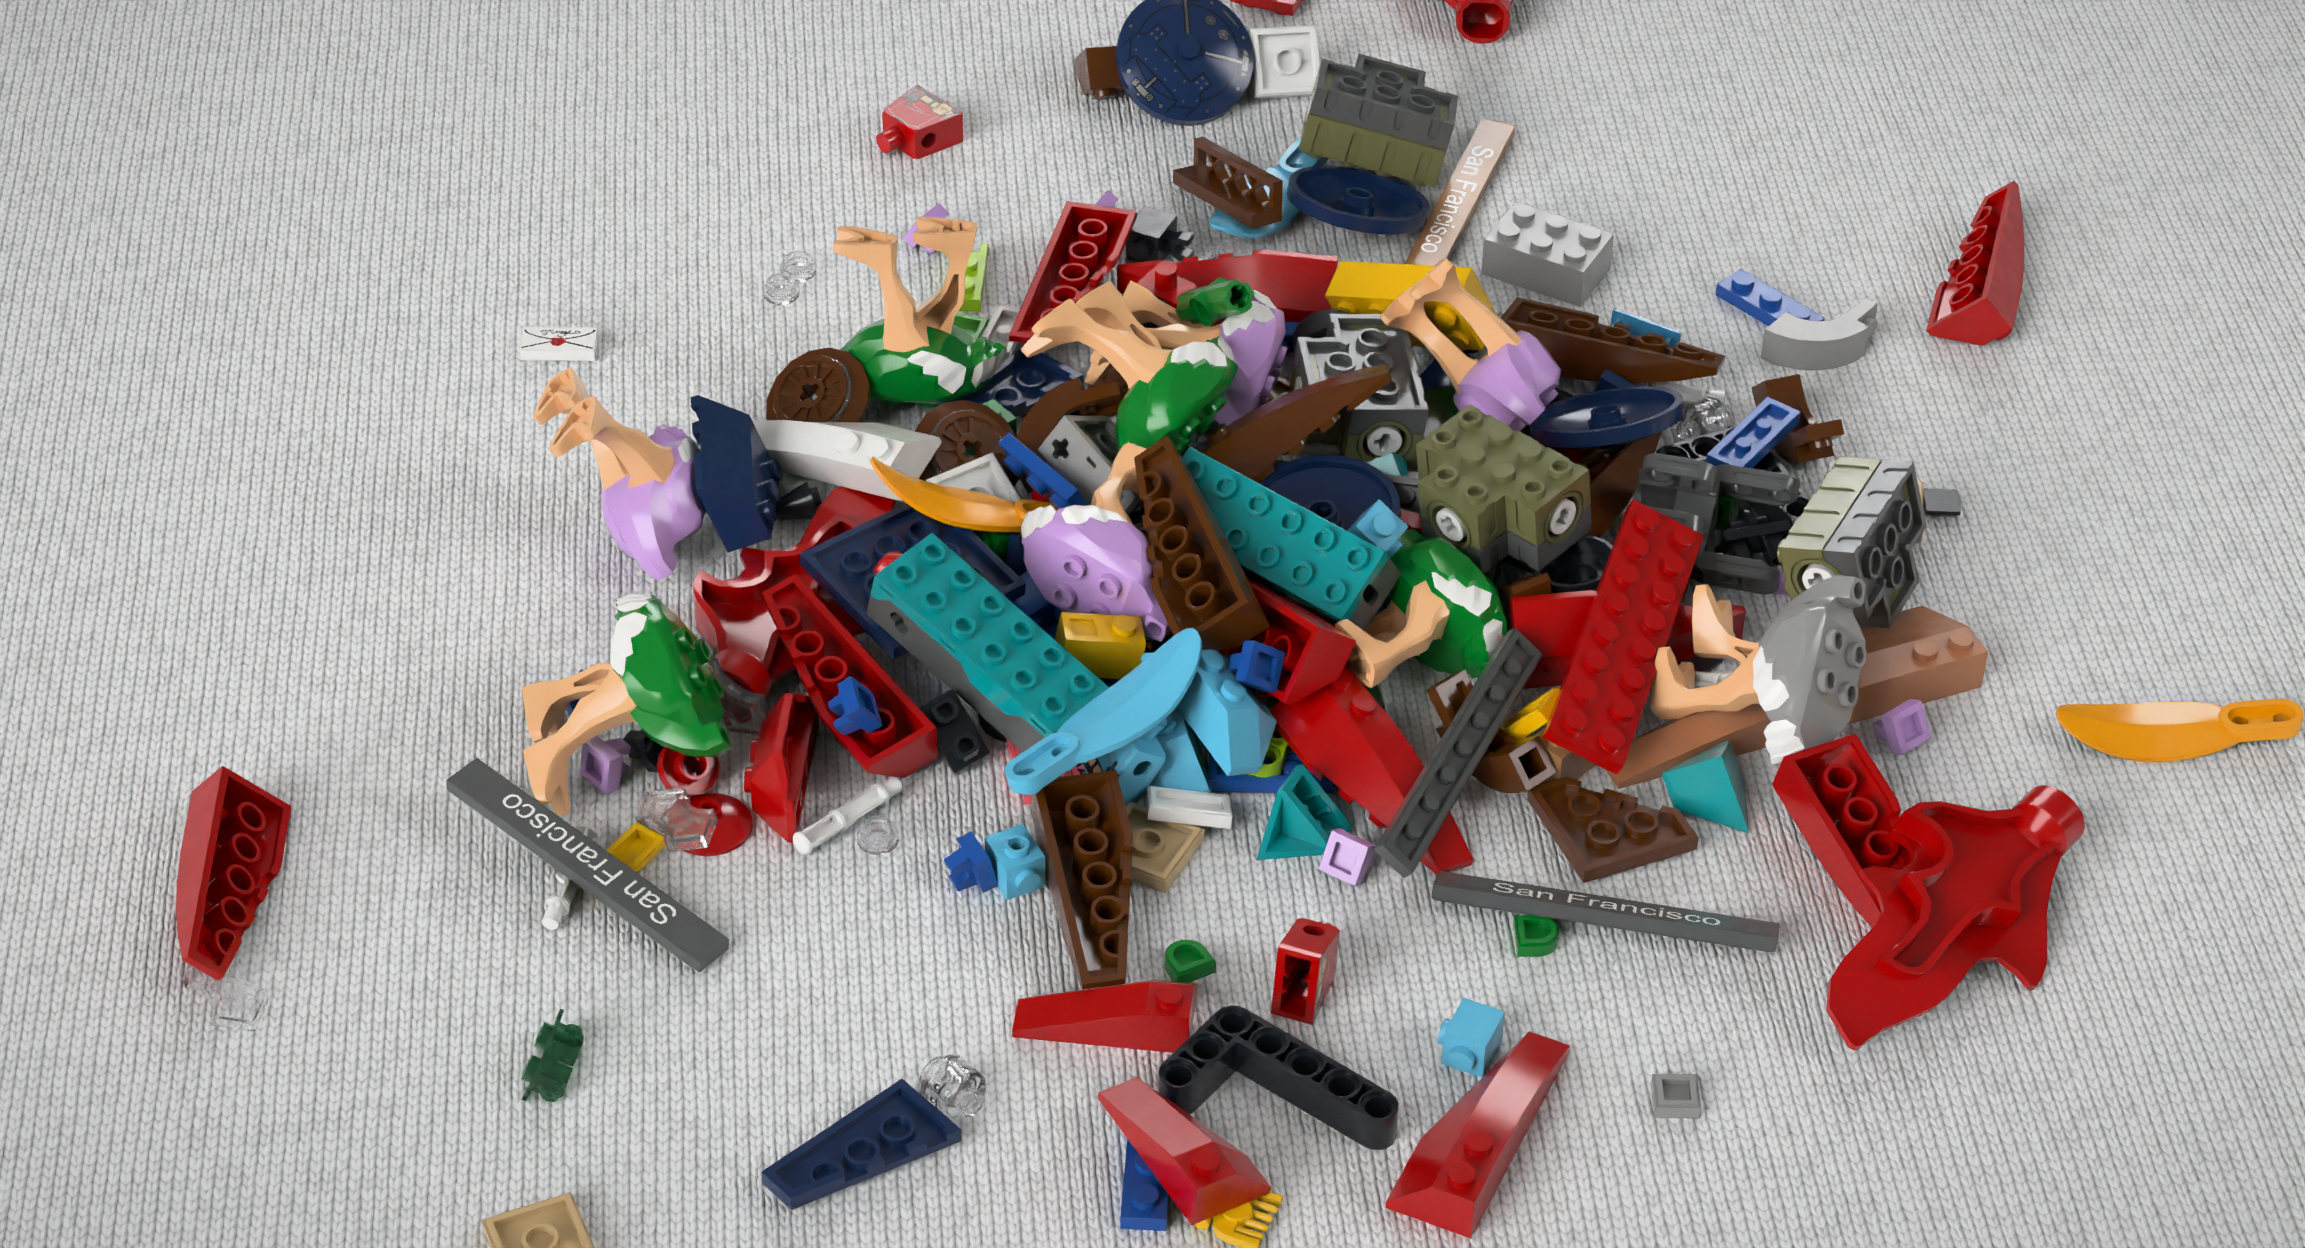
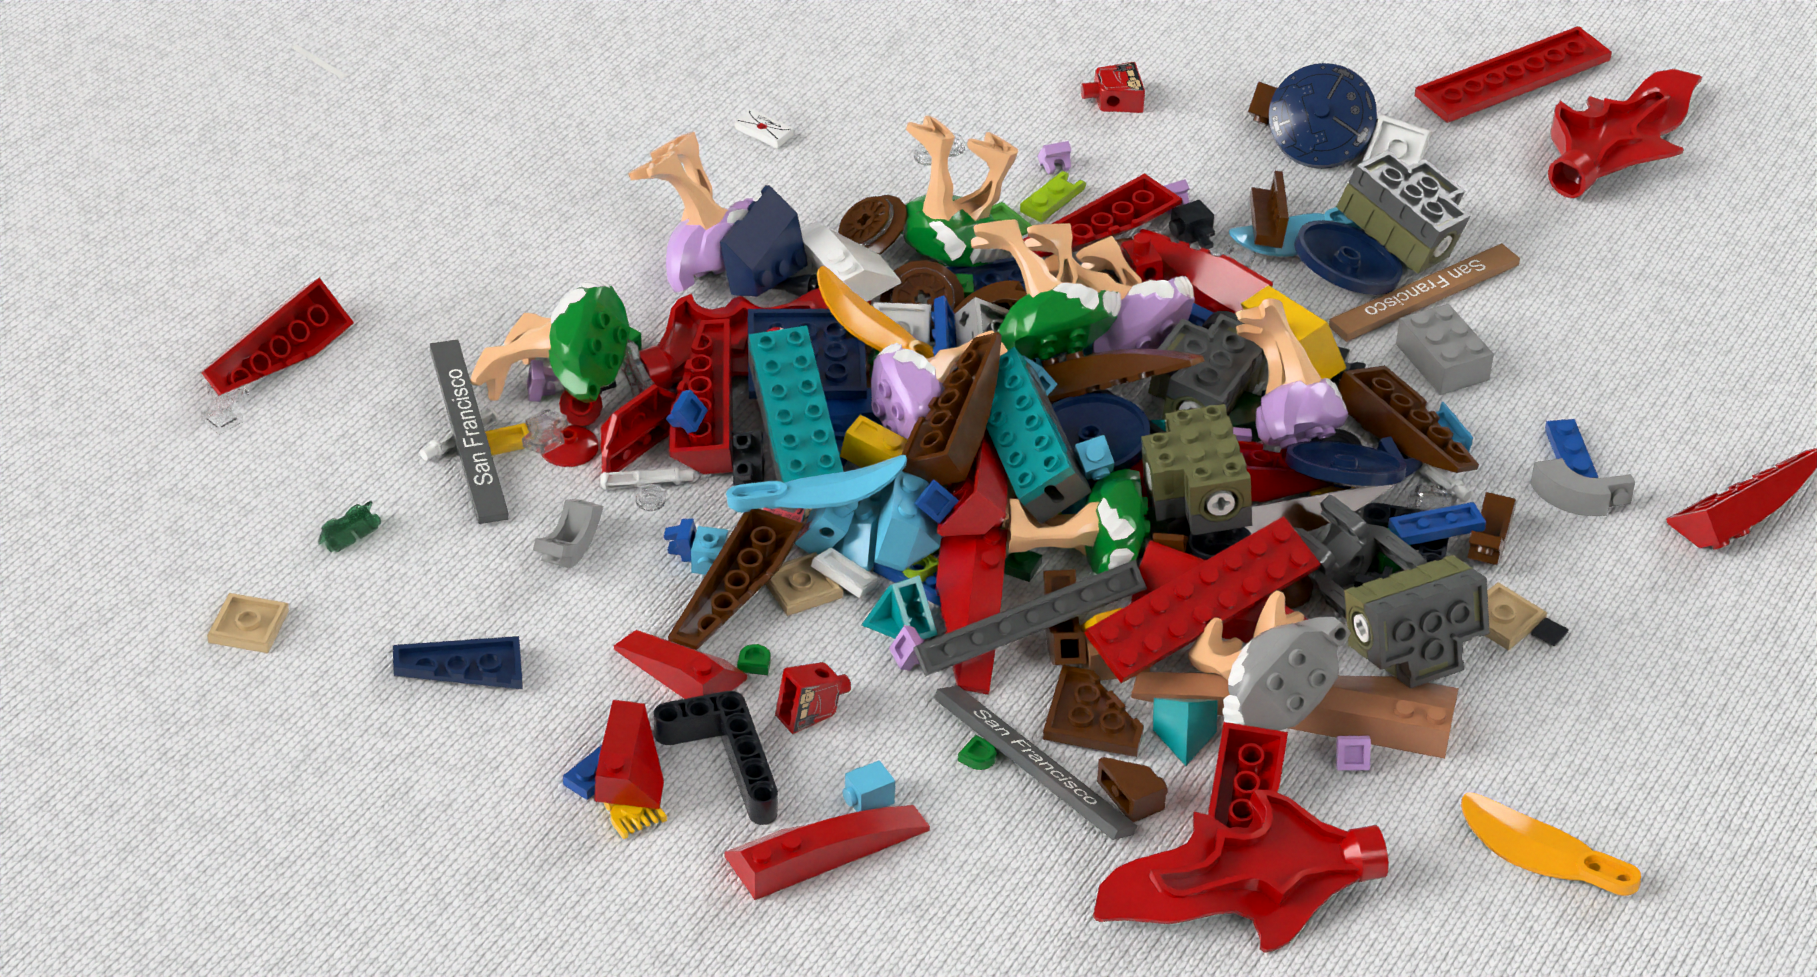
camera: 35 degrees right, 0 degrees up
(836, 924) = (572, 534): none -> light grey arch
(953, 1086) = (541, 653): clear head -> none
(1214, 301) = (1137, 269): green piece -> none
(1675, 1096) = (962, 889): light grey tile -> none
(1733, 884) = (1132, 787): none -> reddish brown slope

